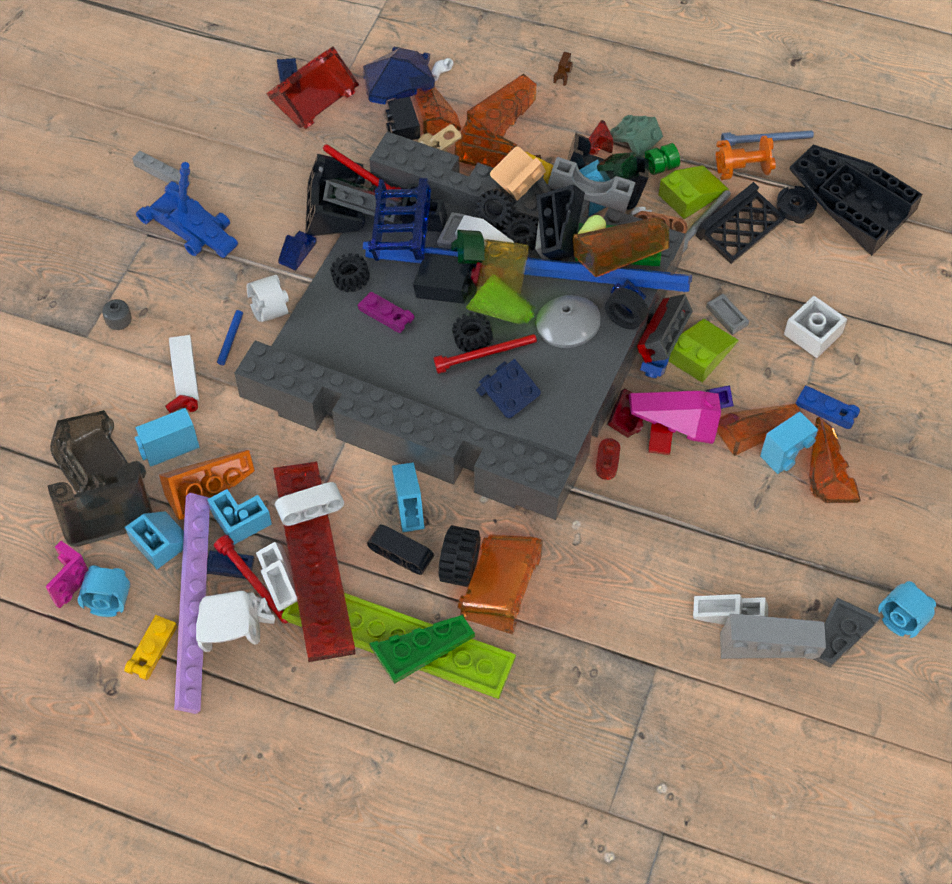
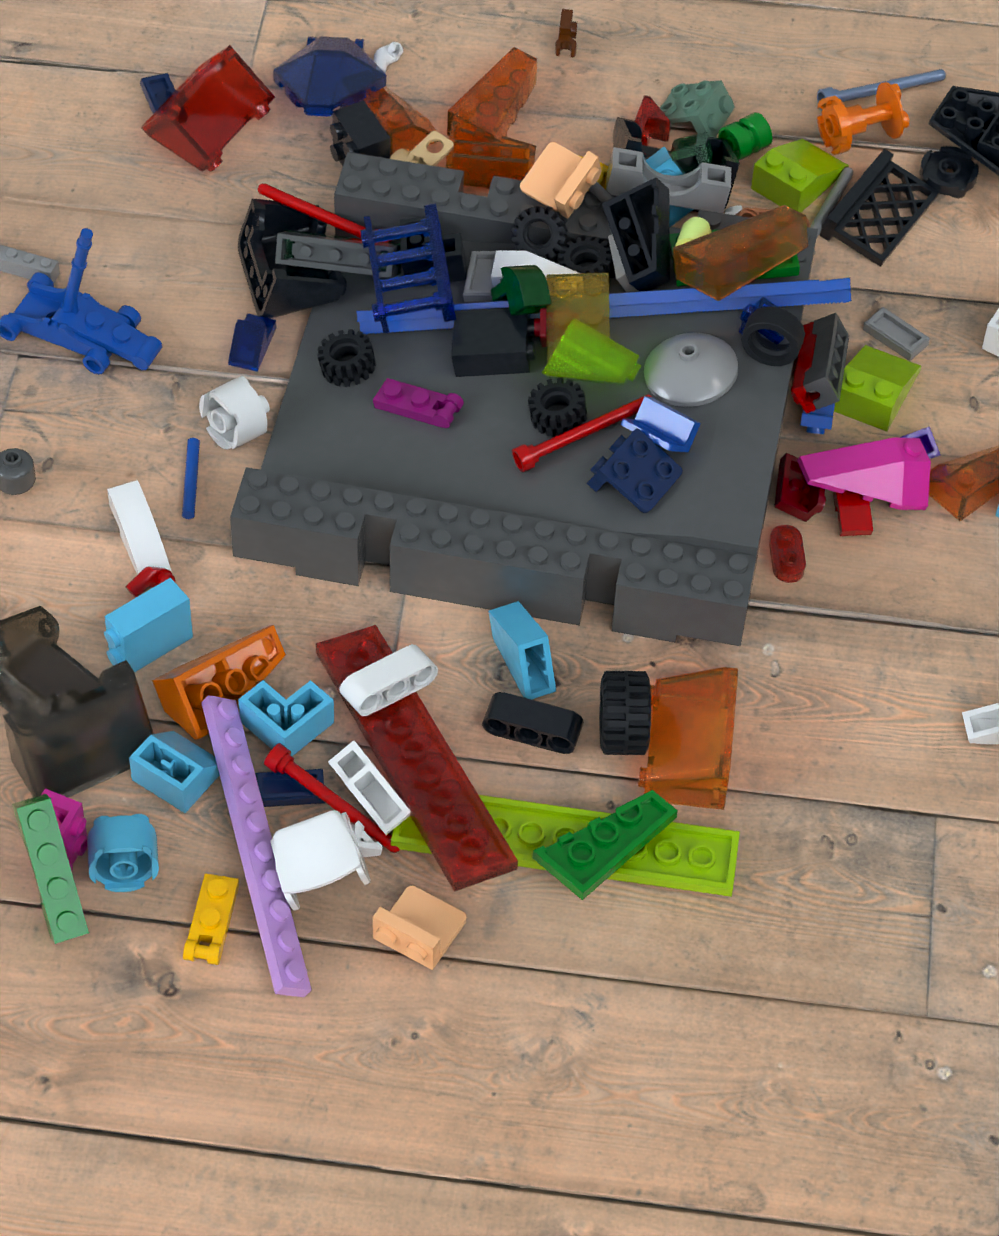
camera: 15 degrees left, 5 degrees down
(45, 583) = (51, 868): none -> arch
(283, 680) = (418, 926): none -> light nougat bracket
(535, 359) = (664, 425): none -> panel

